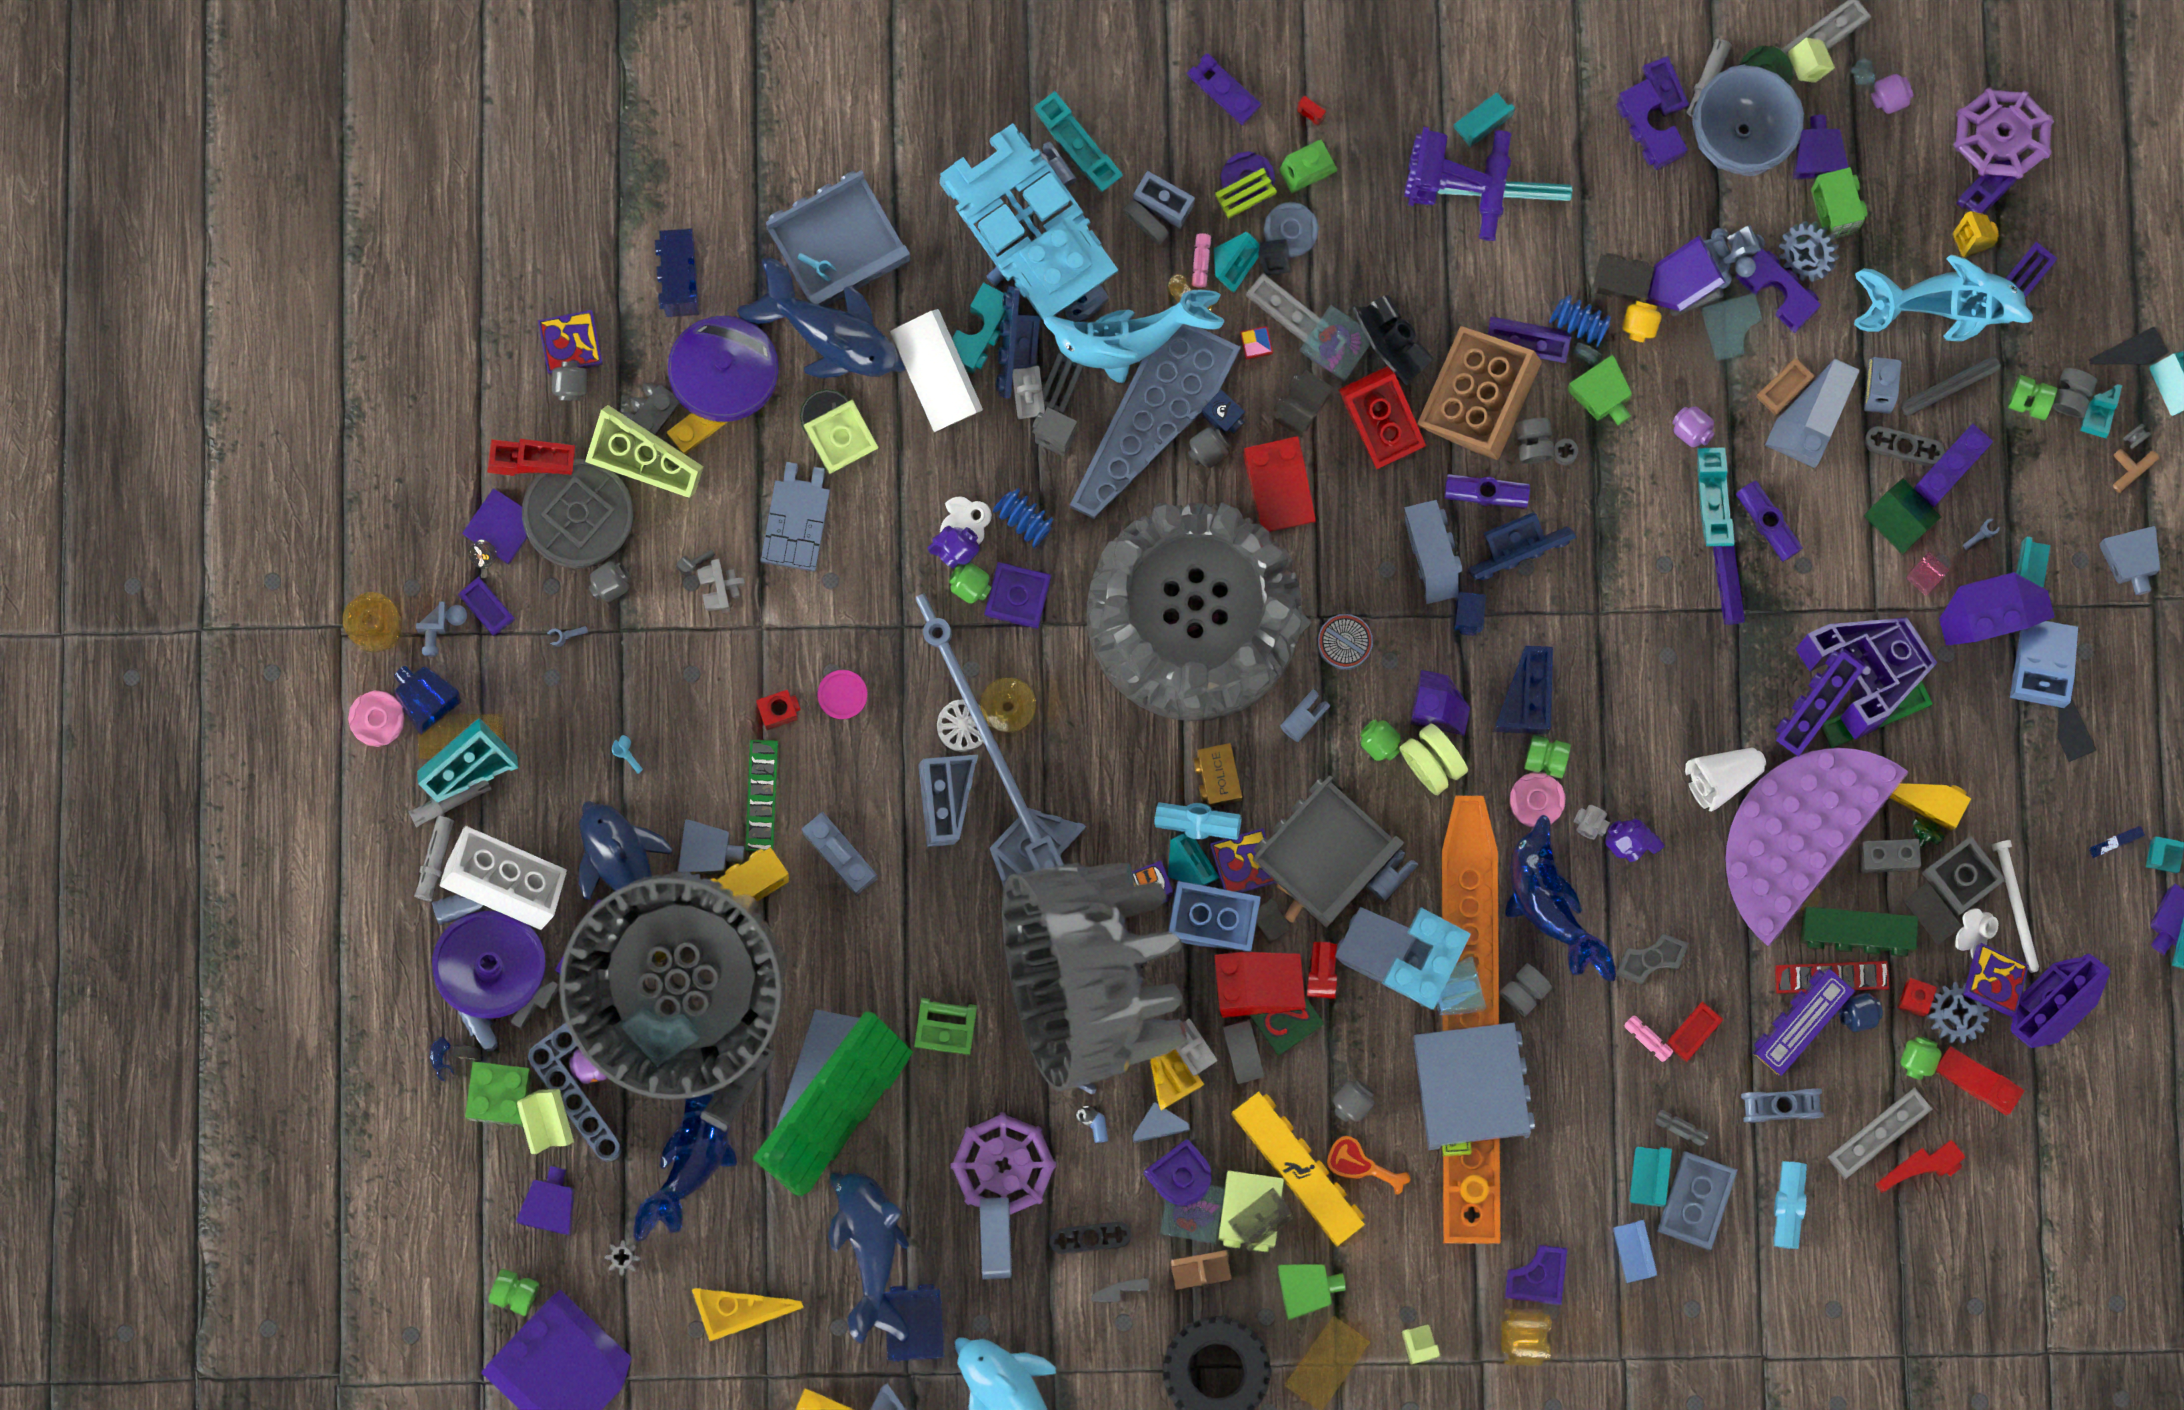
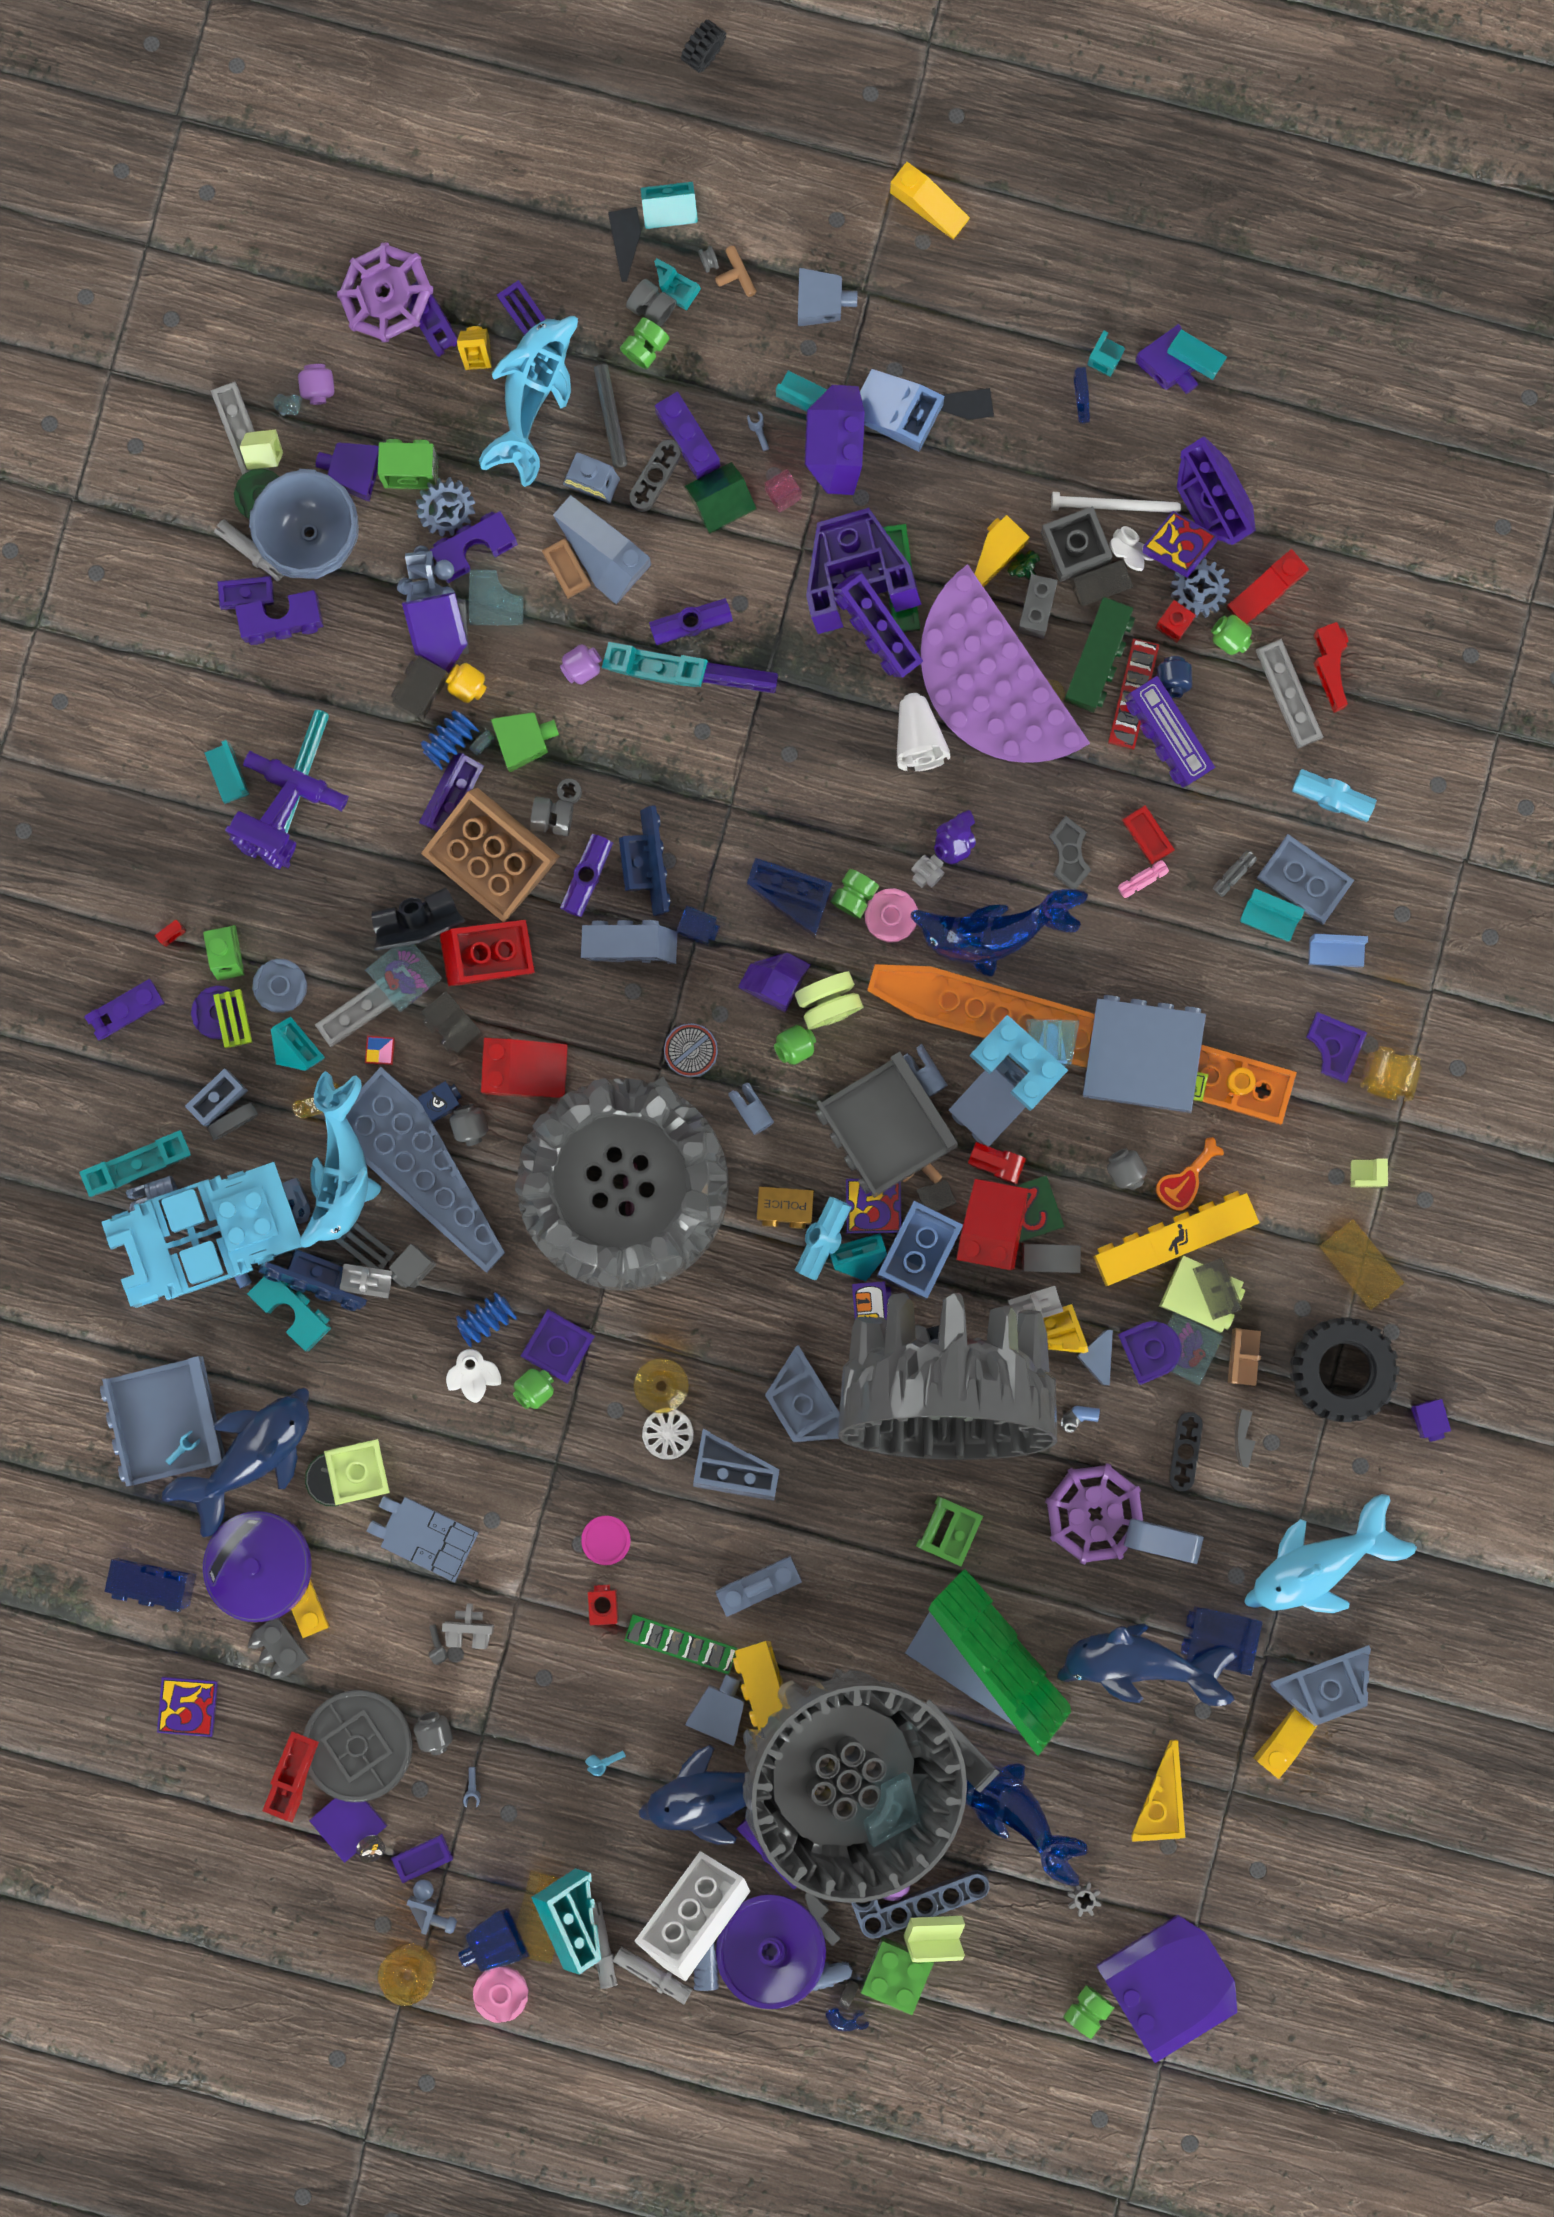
camera: 65 degrees left, 5 degrees up
(549, 1204) = (1014, 1955): dark purple torso -> none
(569, 381) = (227, 1719): dark grey head -> none
(639, 454) = (319, 1670): yellowish green wedge -> none
(936, 370) = (319, 1362): white slope -> none
(955, 546) = (495, 1392): dark purple head -> none
(1041, 850) = (812, 1393): sand blue bar -> none
(1201, 260) = (285, 1079): bright pink axle -> none
(1274, 257) = (302, 1008): black slope -> none
(1307, 1288) = (1289, 1263): bright green torso -> none
(1526, 989) = (1068, 978): dark grey wheel -> none
(1802, 1105) = (1238, 792): sand blue piece -> none

